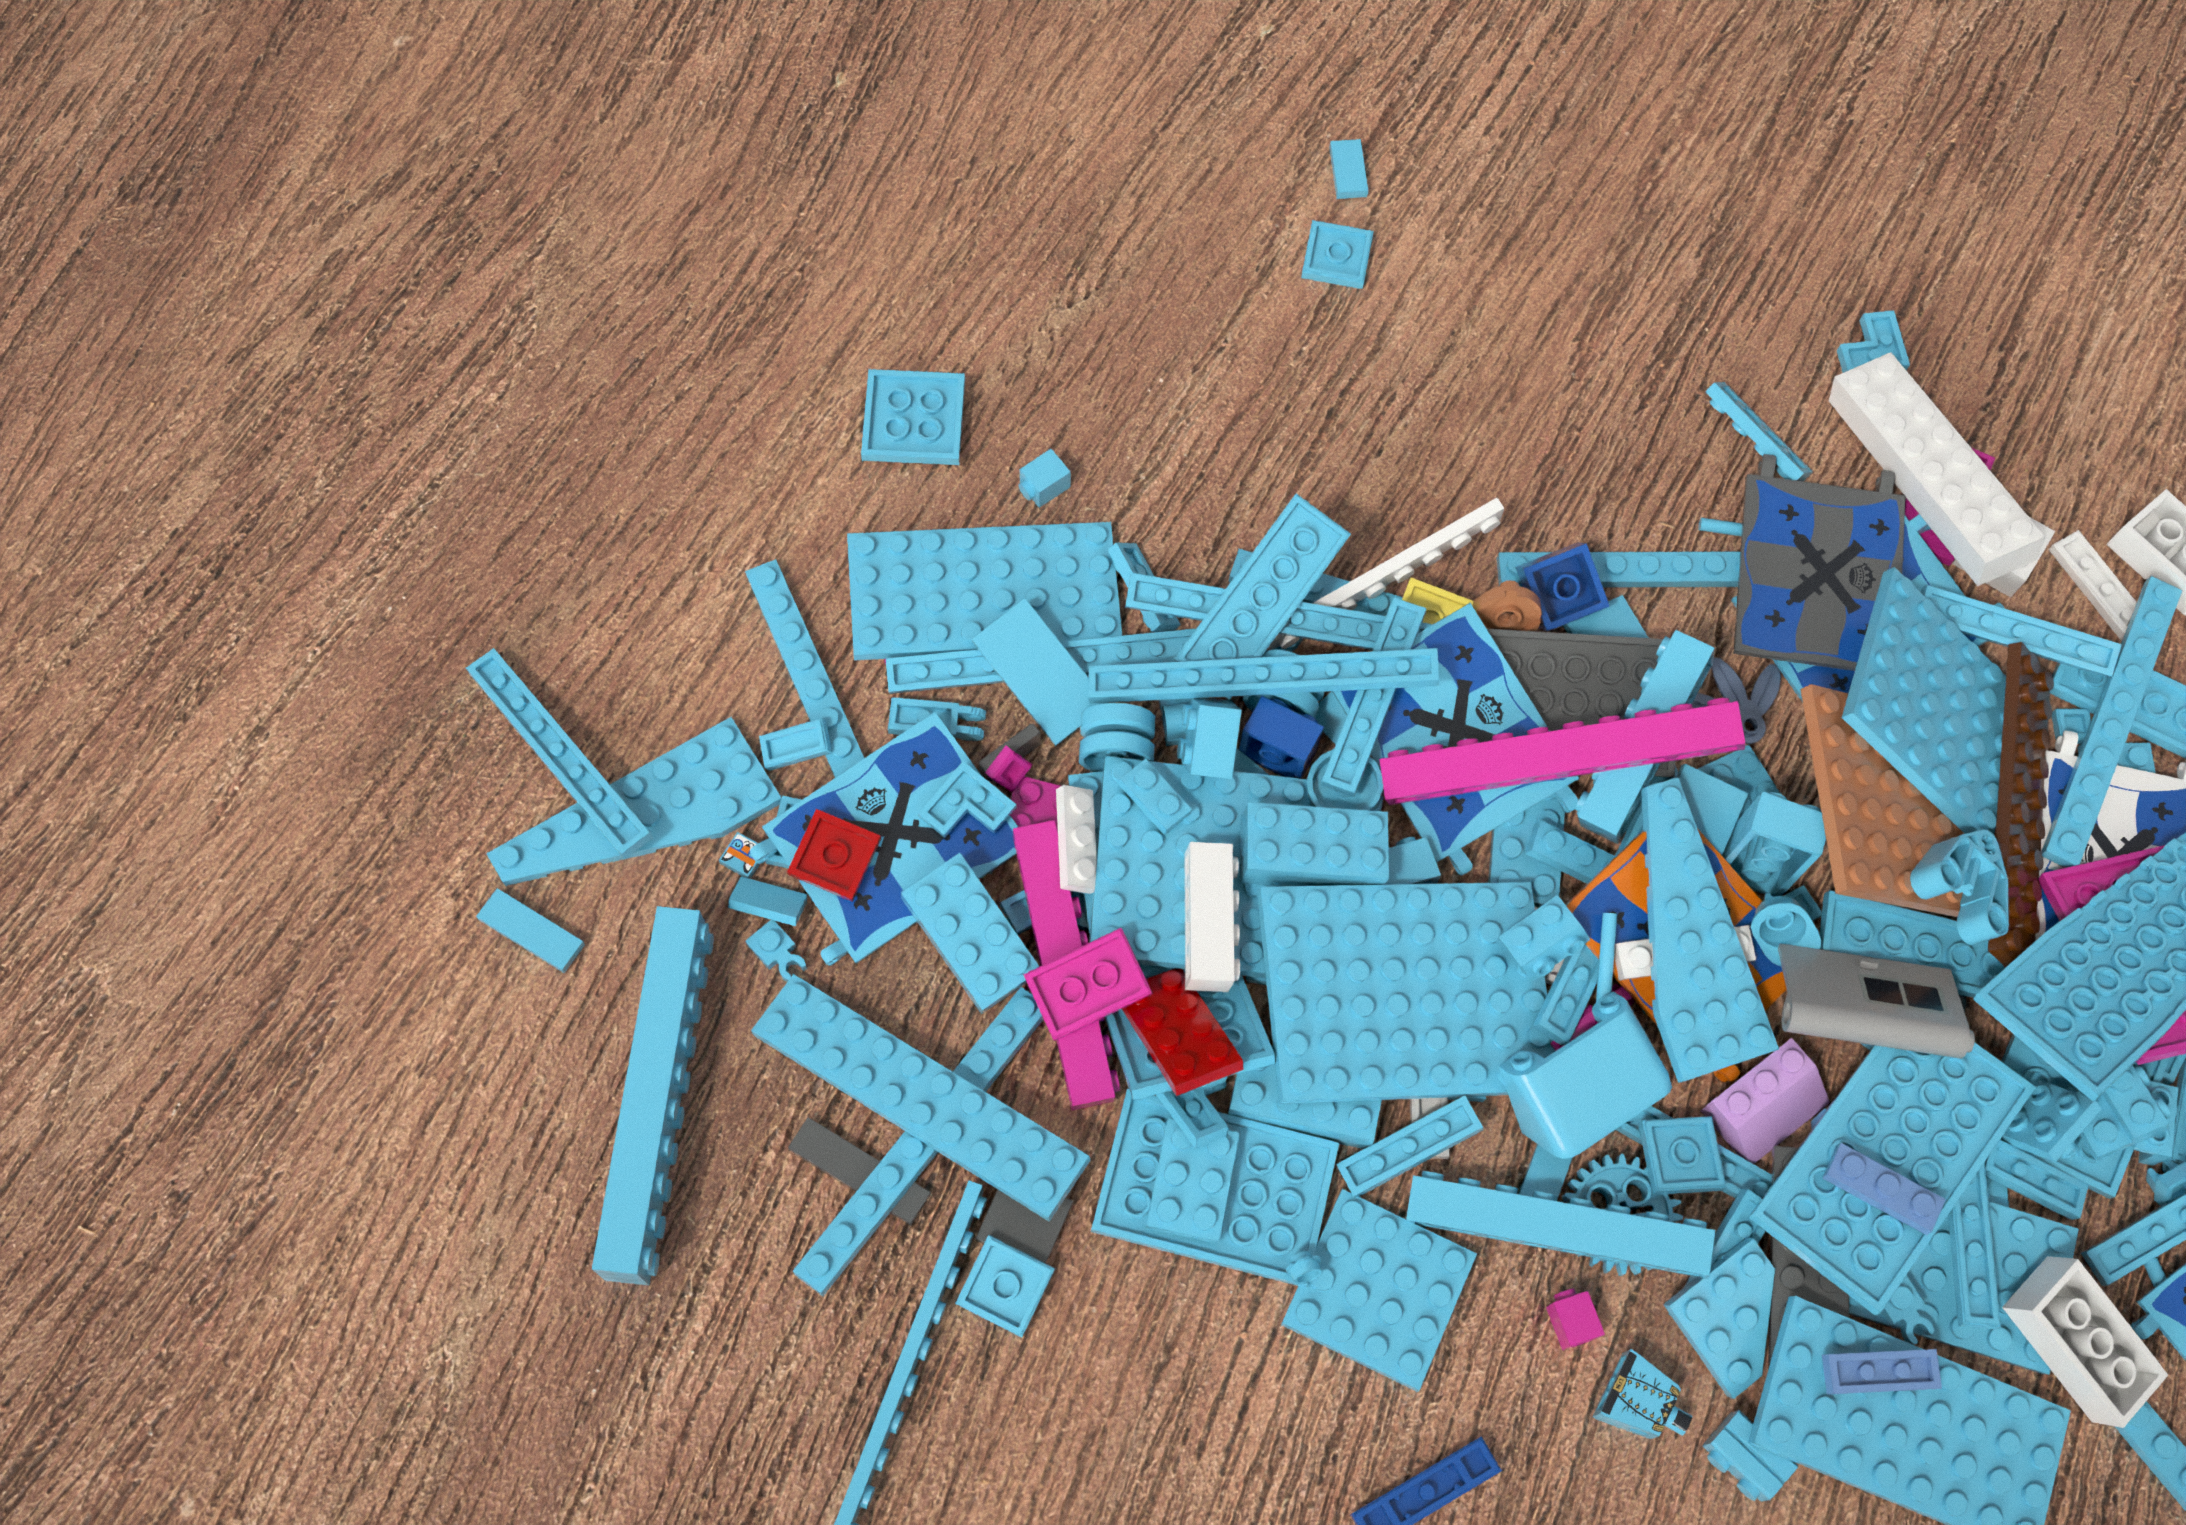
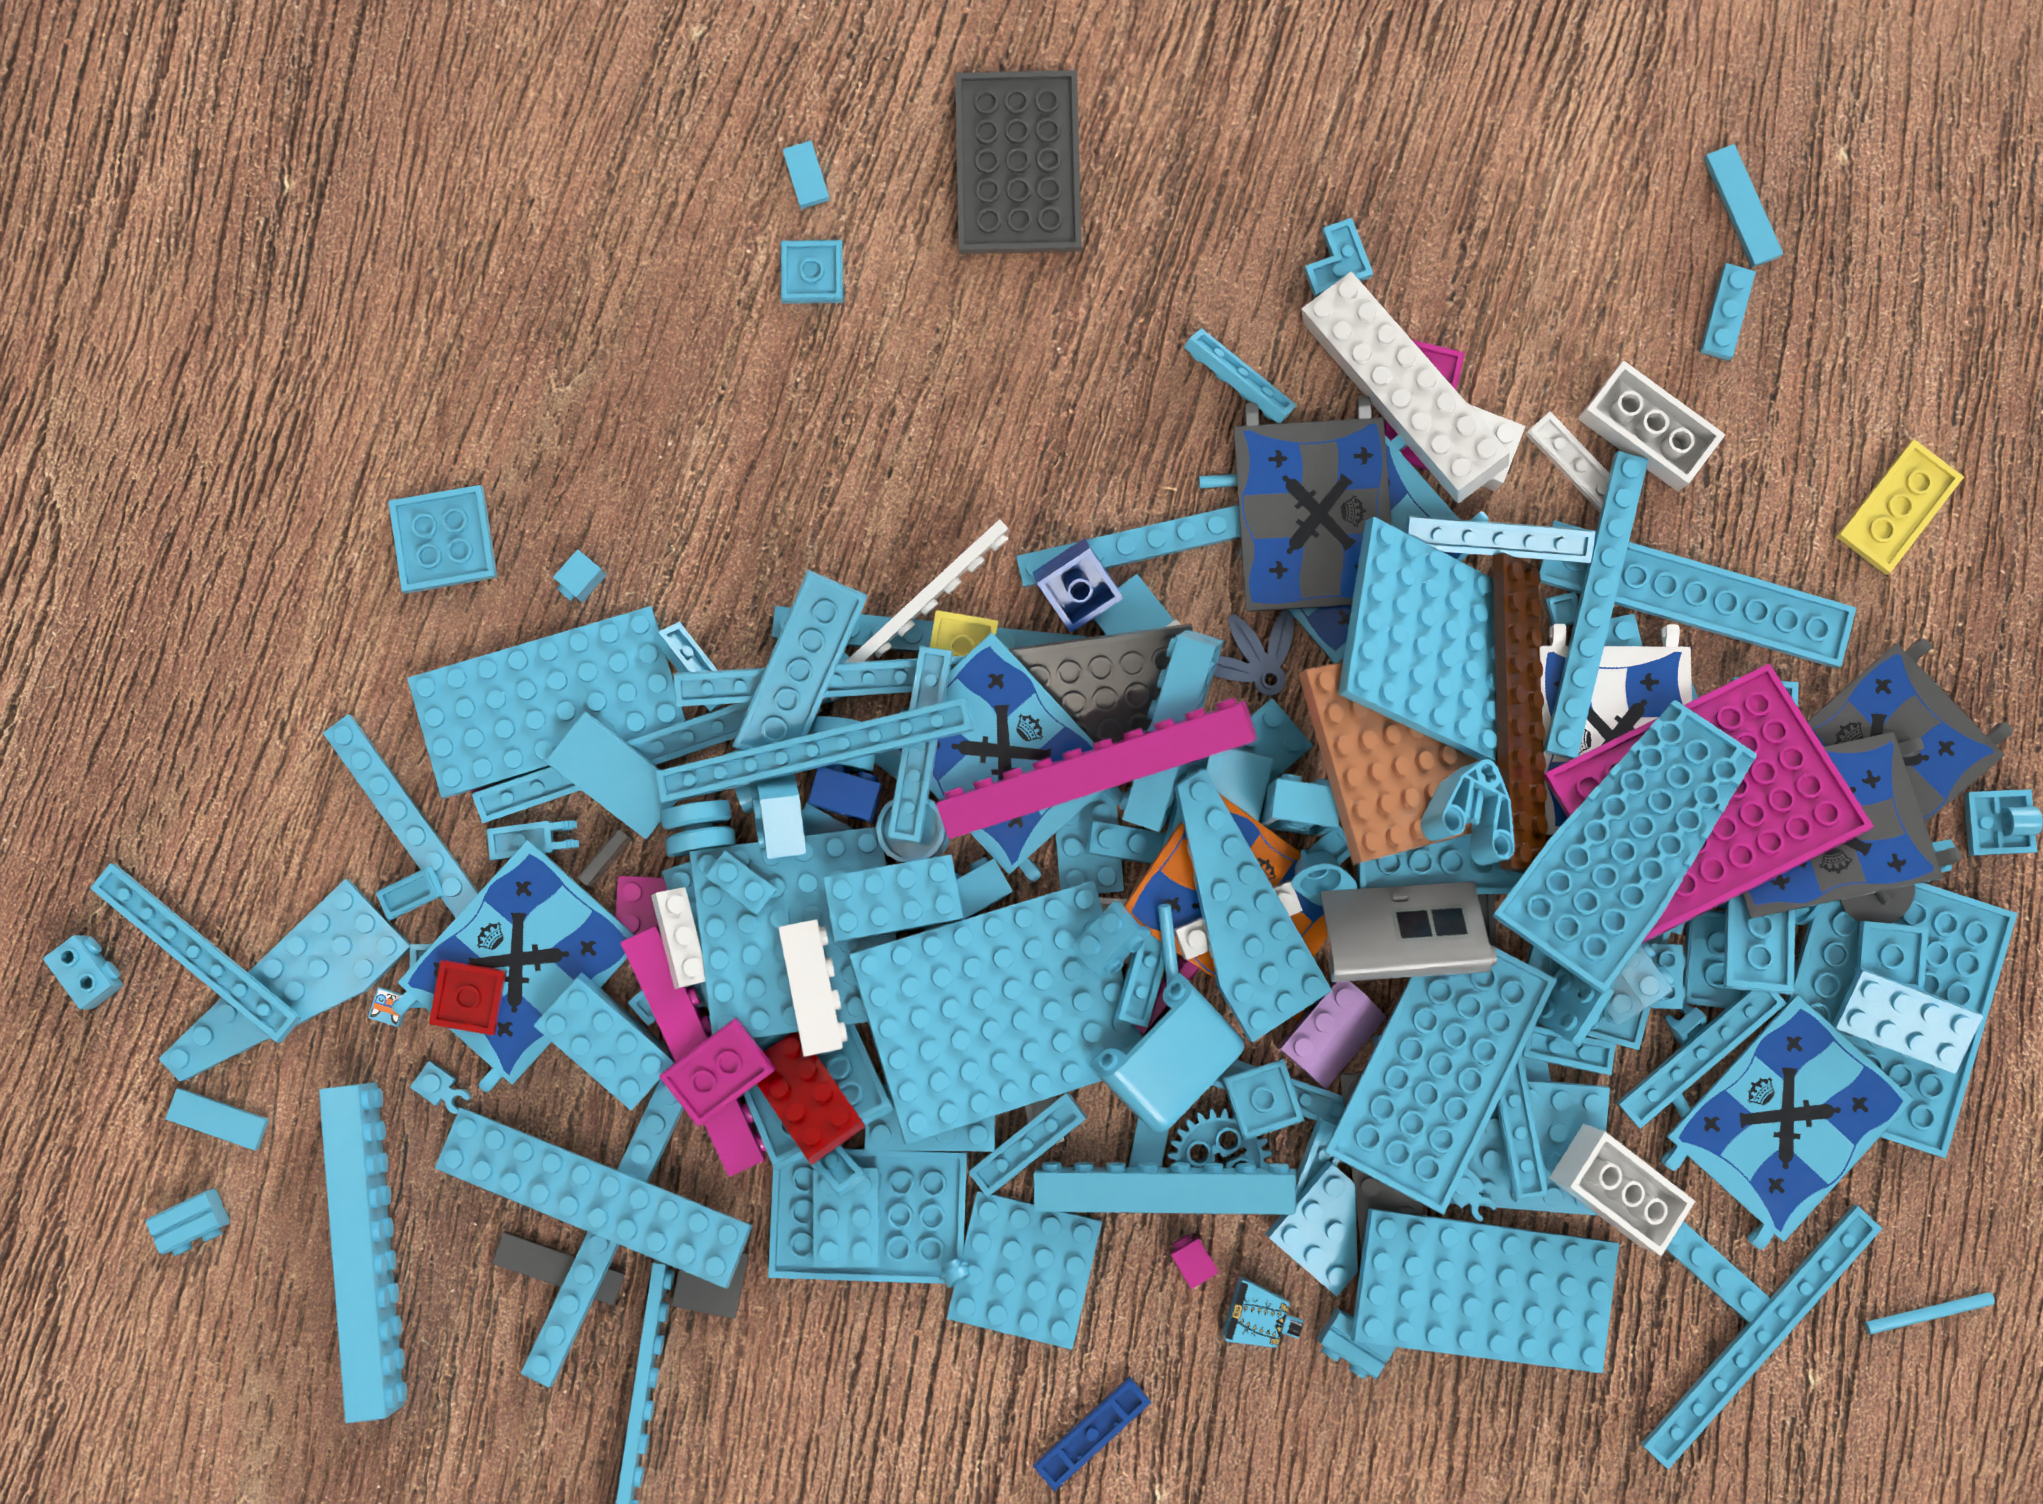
camera: 10 degrees left, 15 degrees up
(435, 749) = (84, 971): none -> medium azure brick
(470, 1029) = (187, 1222): none -> medium azure brick
(767, 901) = (420, 1046): medium azure tile -> none
(964, 793) = (572, 913): medium azure plate -> none
(1005, 1286) = (705, 1340): medium azure tile -> none
(1008, 768) = (606, 876): dark pink tile -> none
(1509, 598) = (1029, 626): nougat plate -> none
(1562, 198) = (1018, 162): none -> dark grey plate
(1881, 1371) = (1452, 1260): medium blue plate -> none
(1884, 1189) = (1434, 1105): medium blue plate -> none

